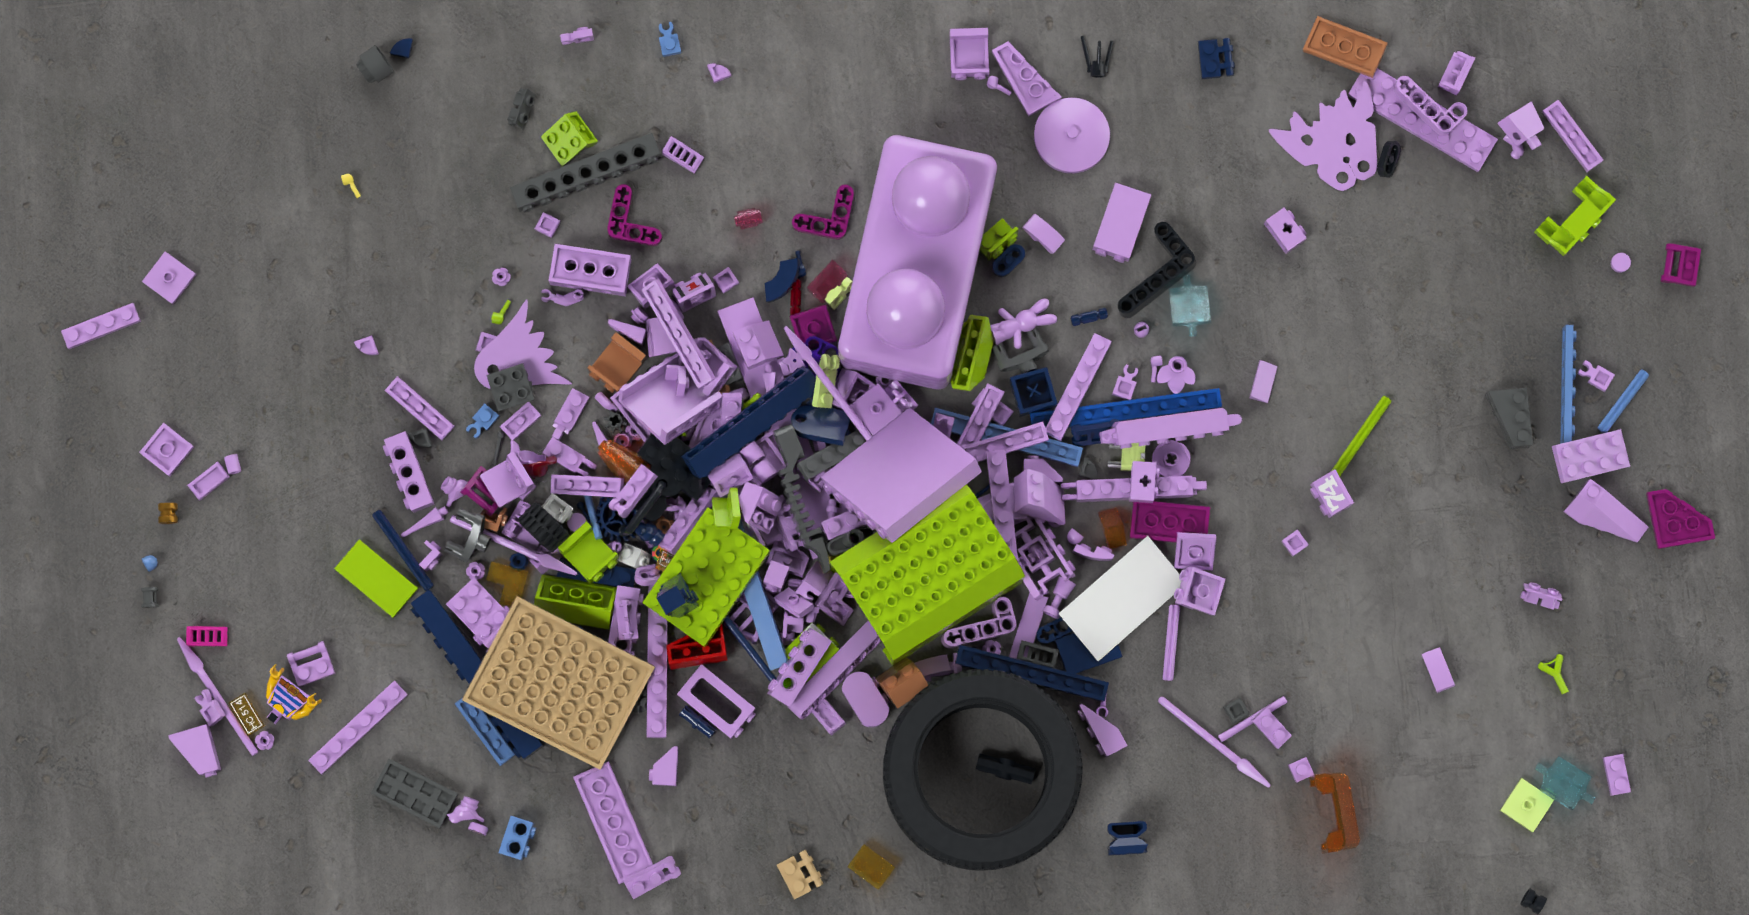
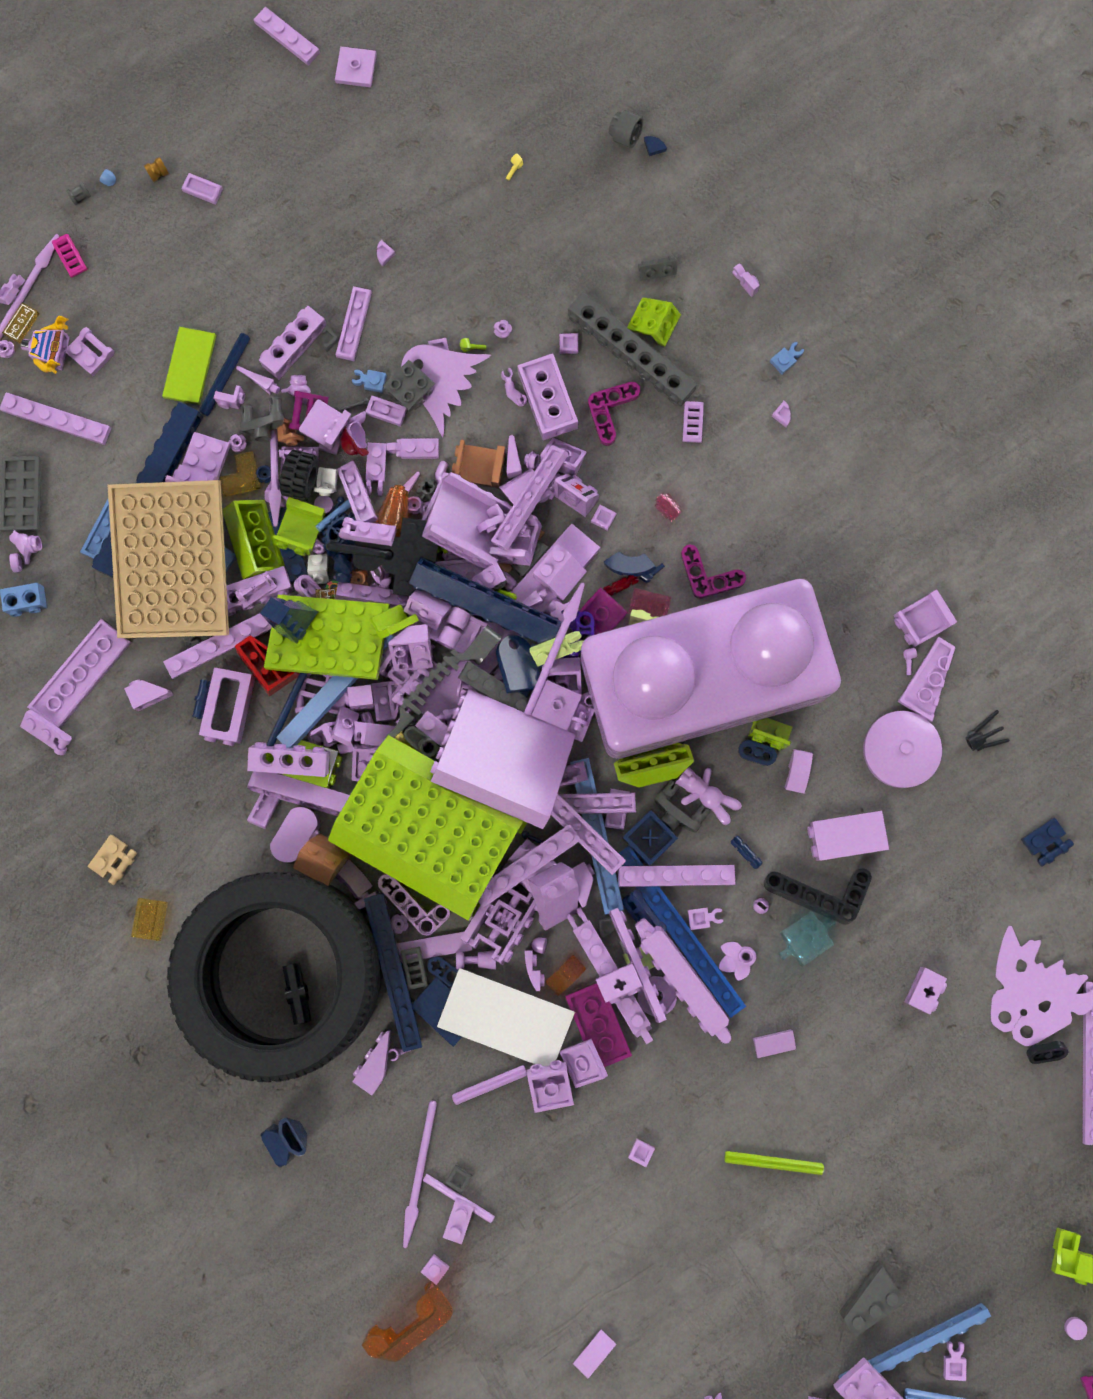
camera: 70 degrees right, 0 degrees up
(166, 449) = (210, 141): lavender tile -> none
(232, 464) = (225, 199): lavender hinge -> none
(1126, 458) = (634, 955): none -> lavender plate
(1155, 361) = (739, 934): lavender hand -> none
(1331, 494) = (704, 1164): lavender slope -> none

